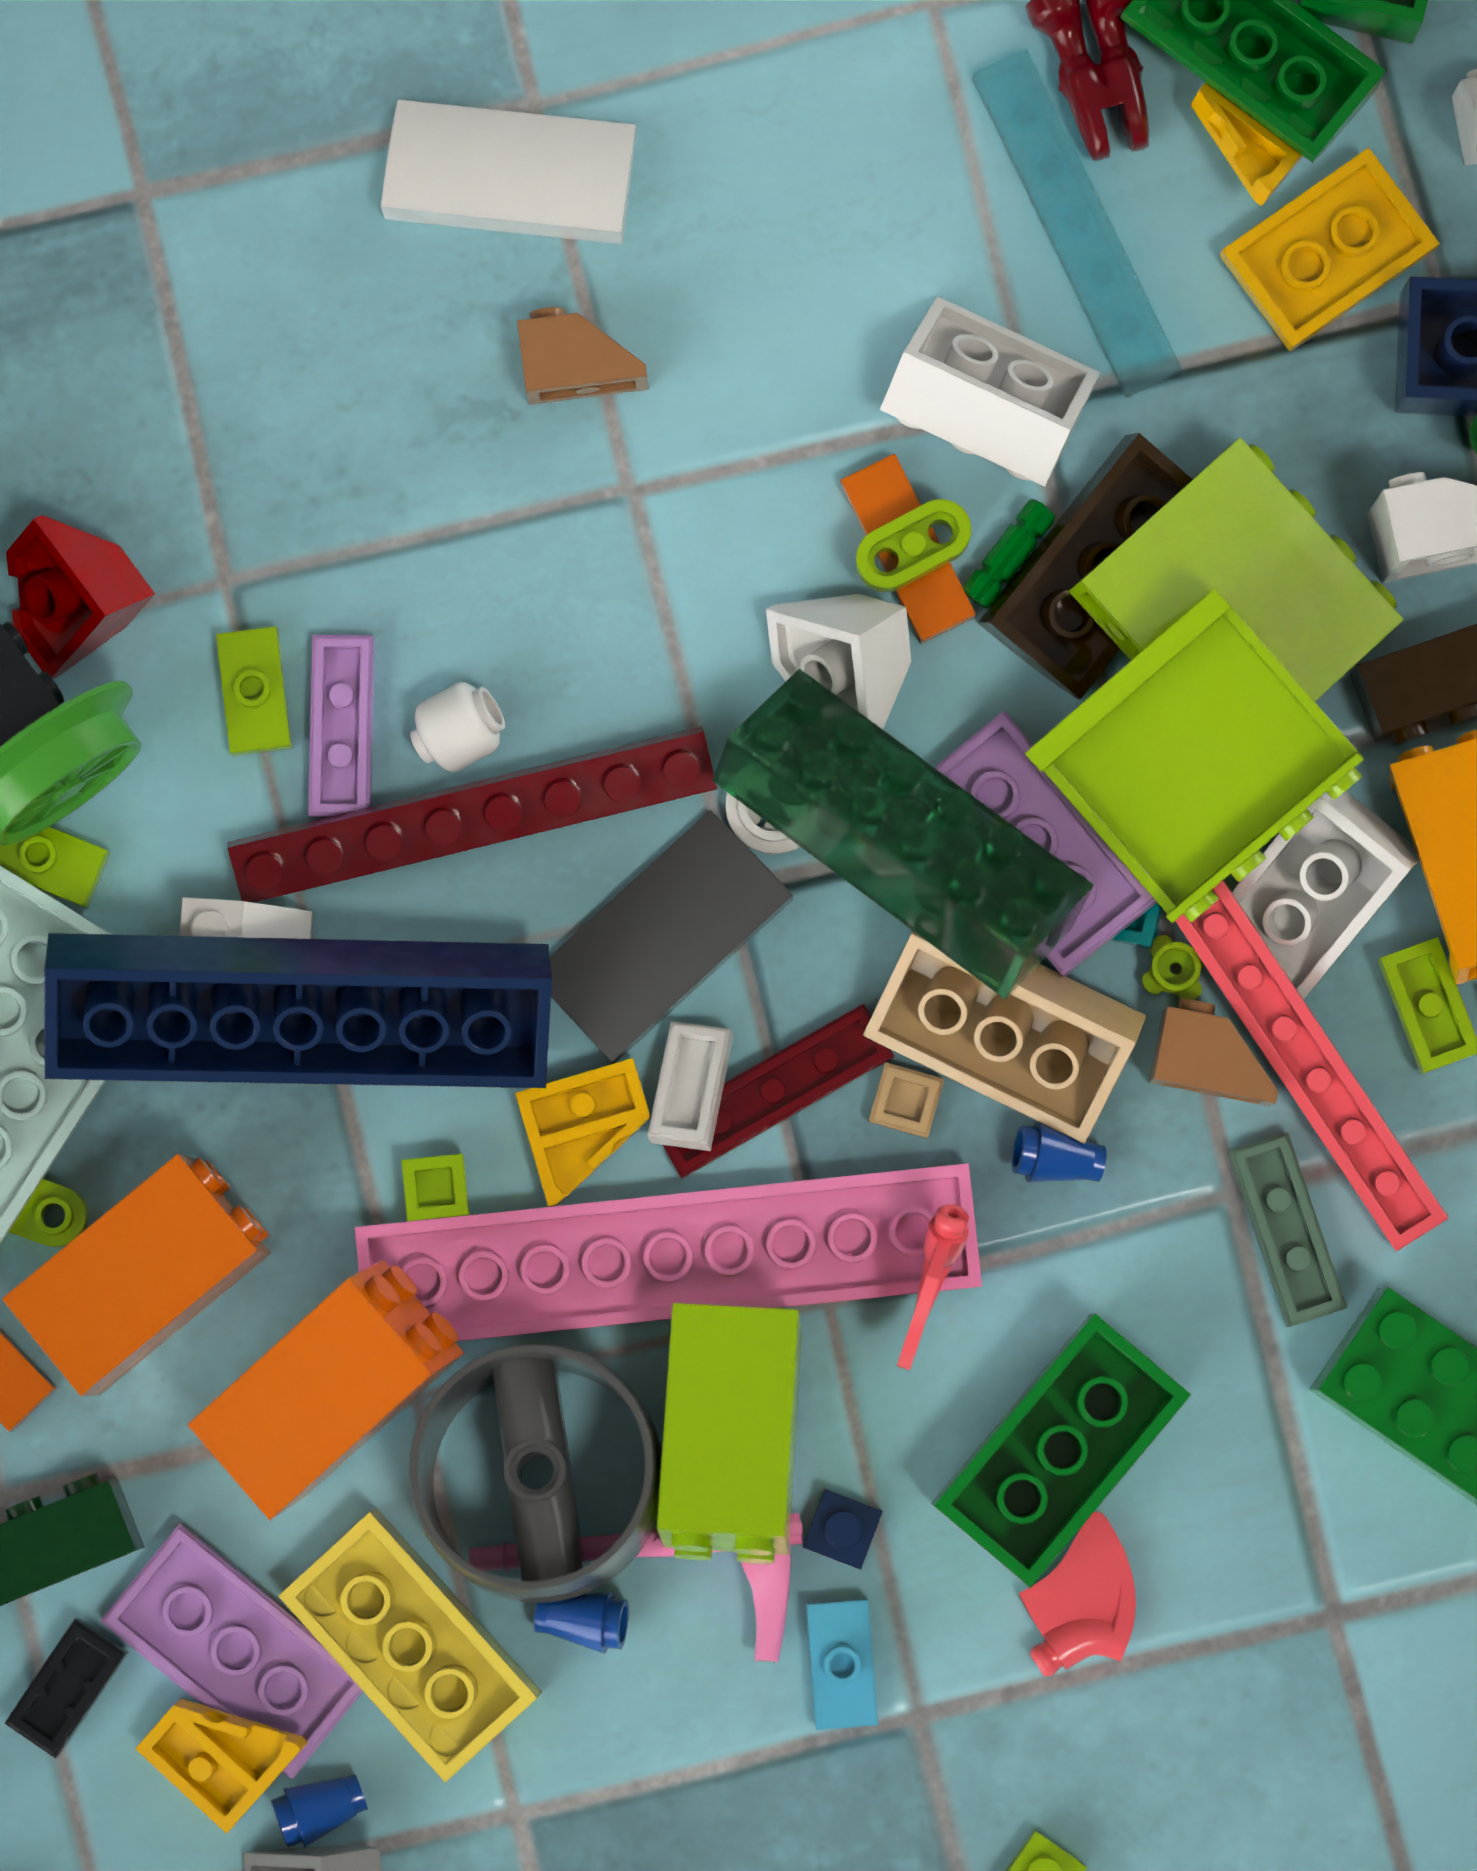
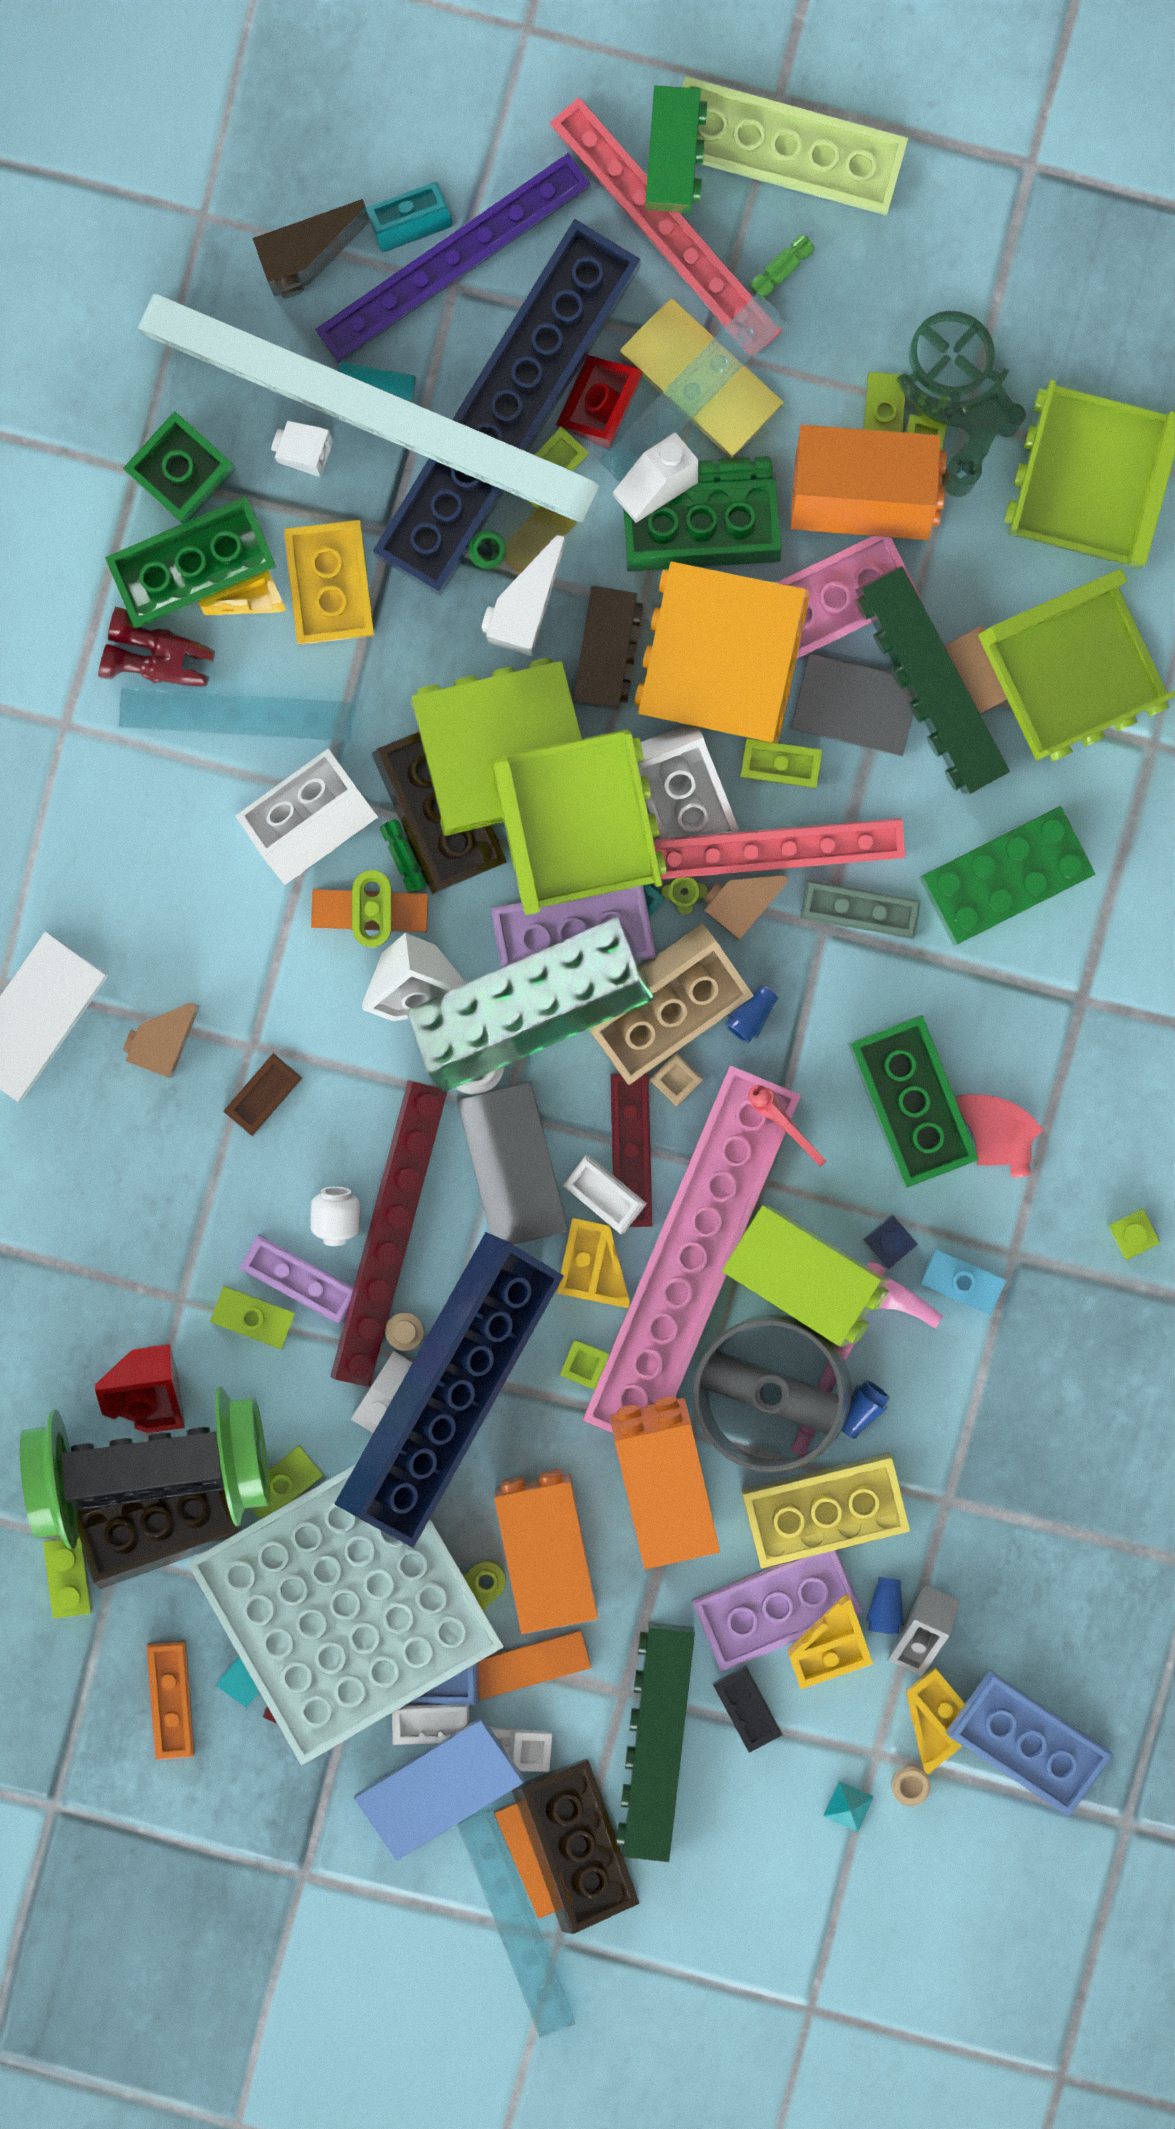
camera: 60 degrees left, 5 degrees up
(347, 911) = (404, 1331): none -> tan plate
(572, 539) = (263, 1094): none -> reddish brown tile

